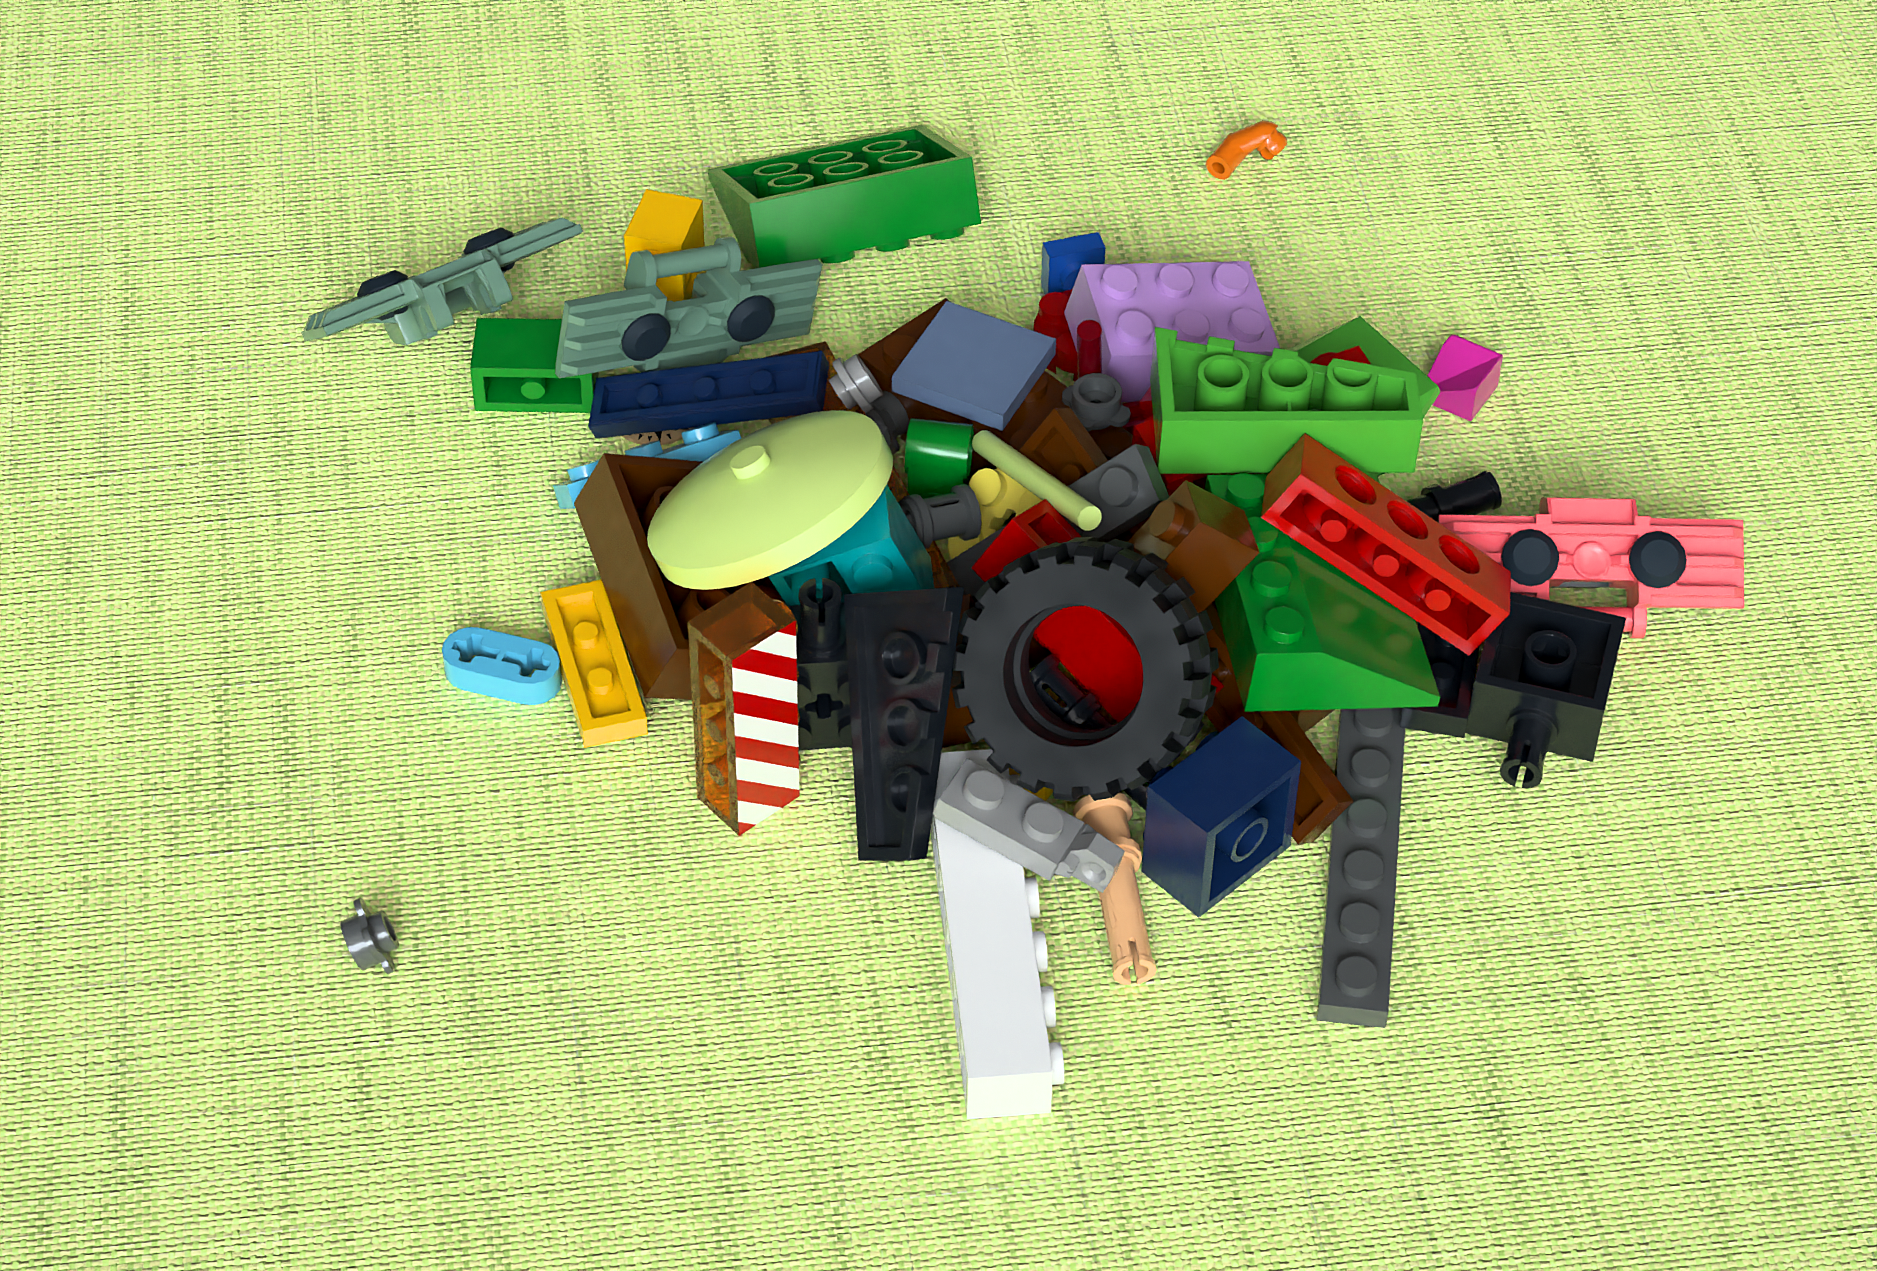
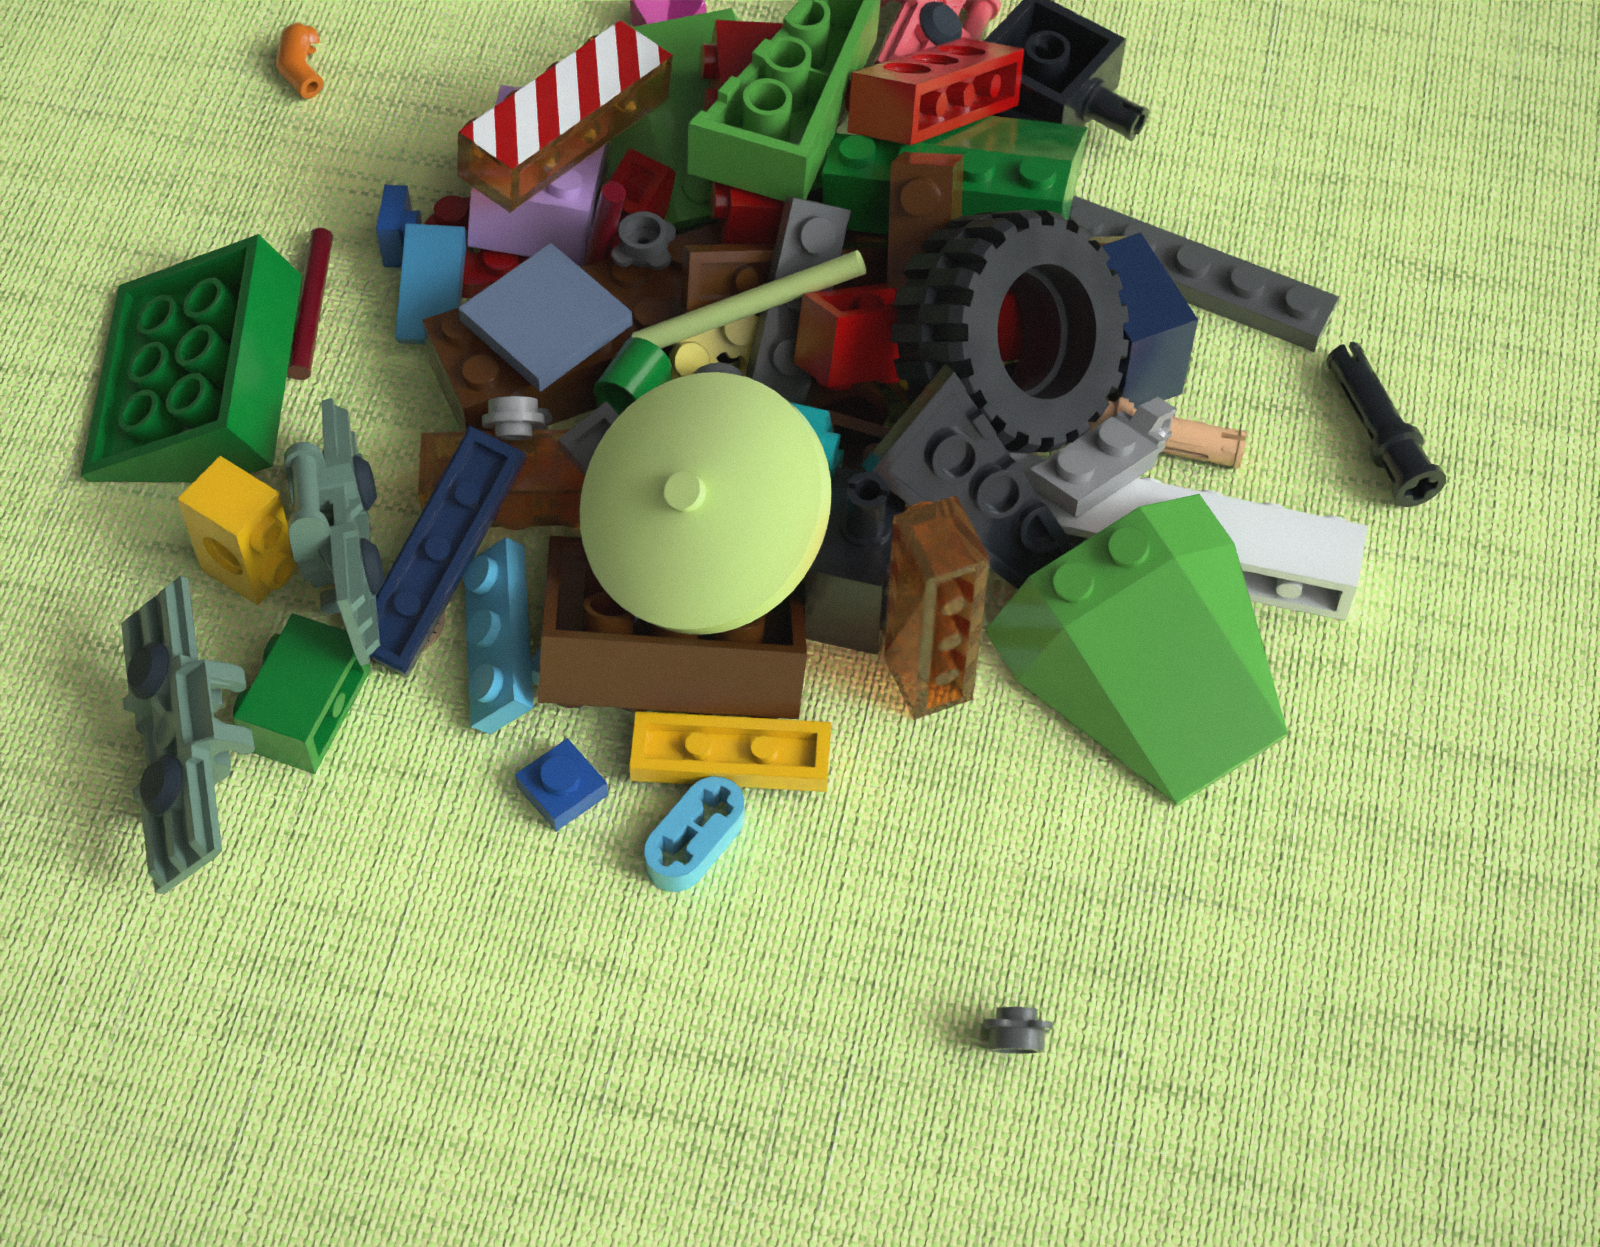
camera: 70 degrees left, 10 degrees up
(519, 564) = (561, 784): none -> blue plate
(831, 925) = (1149, 647): none -> bright green wedge
(965, 247) = (310, 303): none -> dark red bar
(1026, 297) = (429, 277): none -> dark azure tile
(1190, 285) = (563, 115): none -> brick
(1205, 1099) = (1394, 443): none -> black pin

